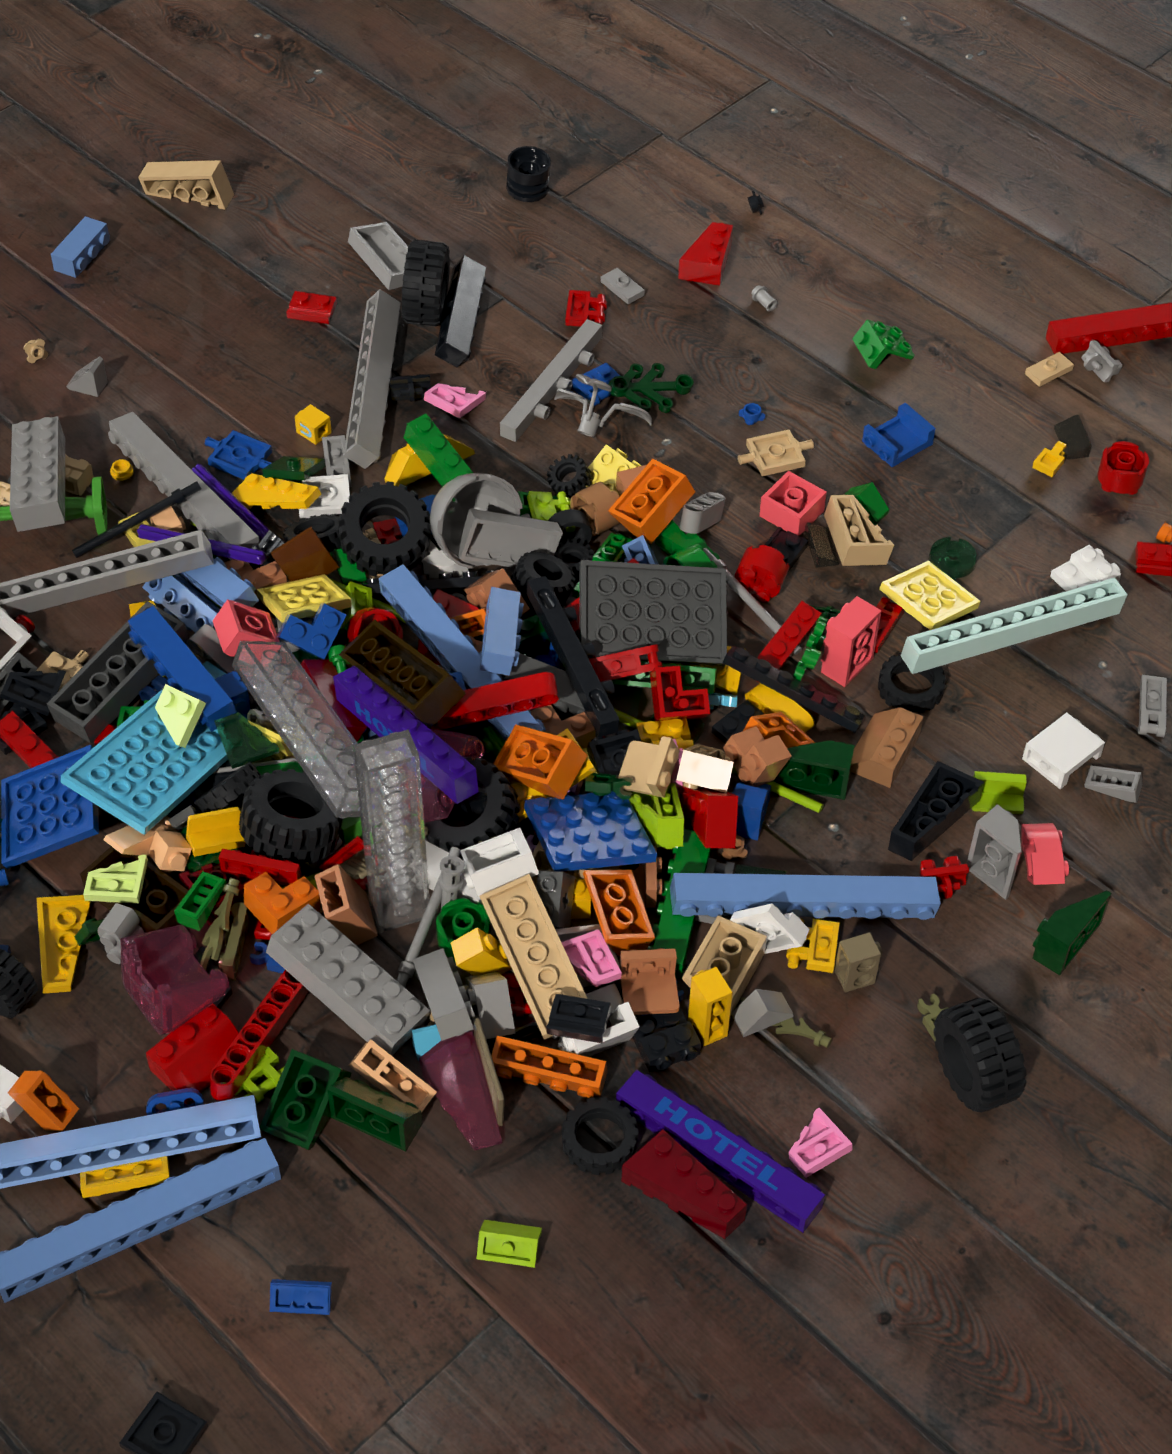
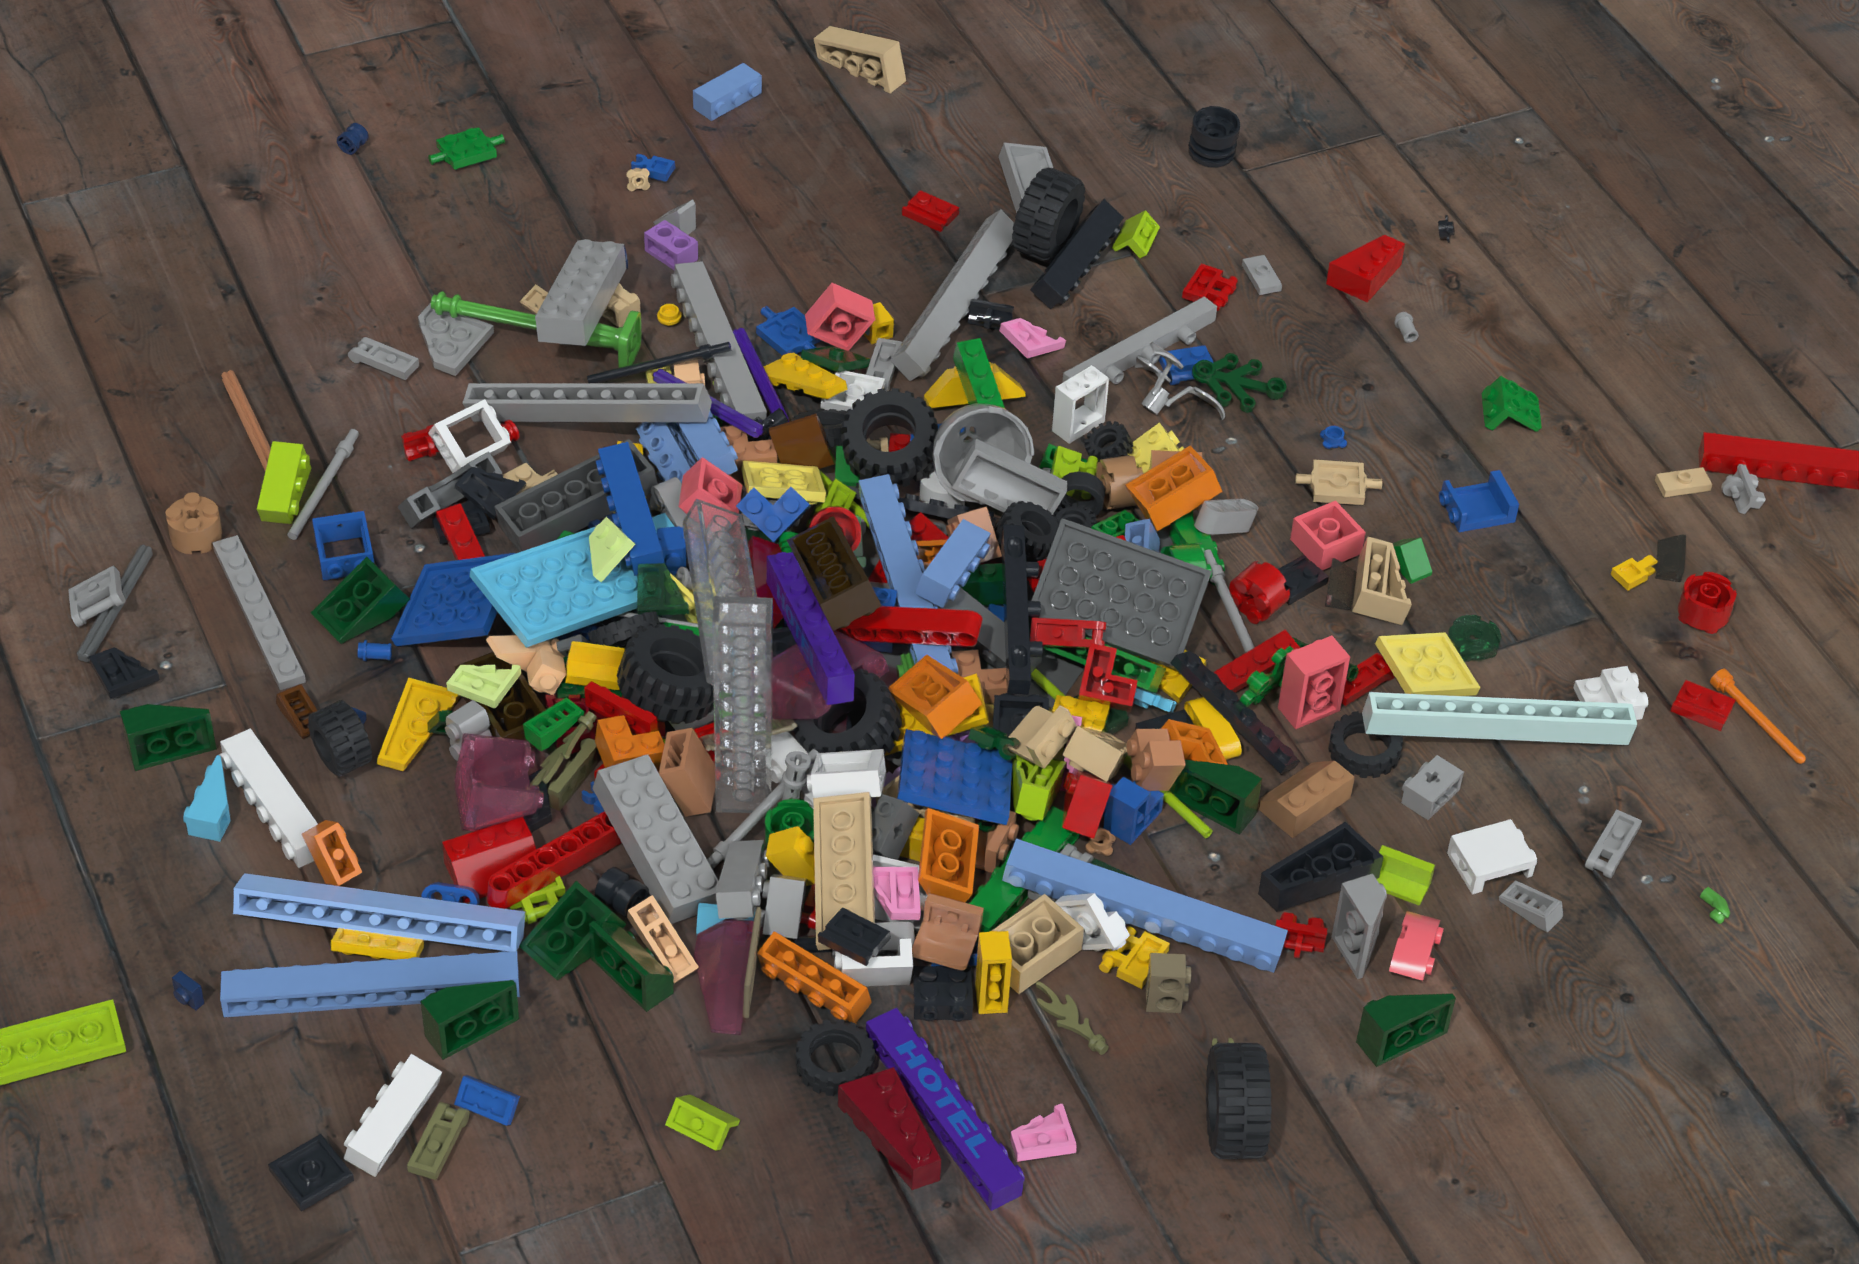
camera: 20 degrees right, 5 degrees down
(50, 333) = (658, 167): none -> blue plate
(94, 404) = (670, 244): none -> medium lavender brick
(219, 1347) = (392, 1115): none -> white brick
(245, 1218) = (467, 1014): none -> dark green slope
(271, 1356) = (437, 1141): none -> olive plate
(283, 428) = (839, 317): none -> coral brick
(329, 1042) = (620, 891): none -> black wheel
(501, 277) = (1137, 233): none -> lime panel
(530, 445) = (1066, 419): none -> white window
(761, 1011) = (1049, 997): light grey slope -> none
(985, 703) = (1431, 787): none -> light grey brick

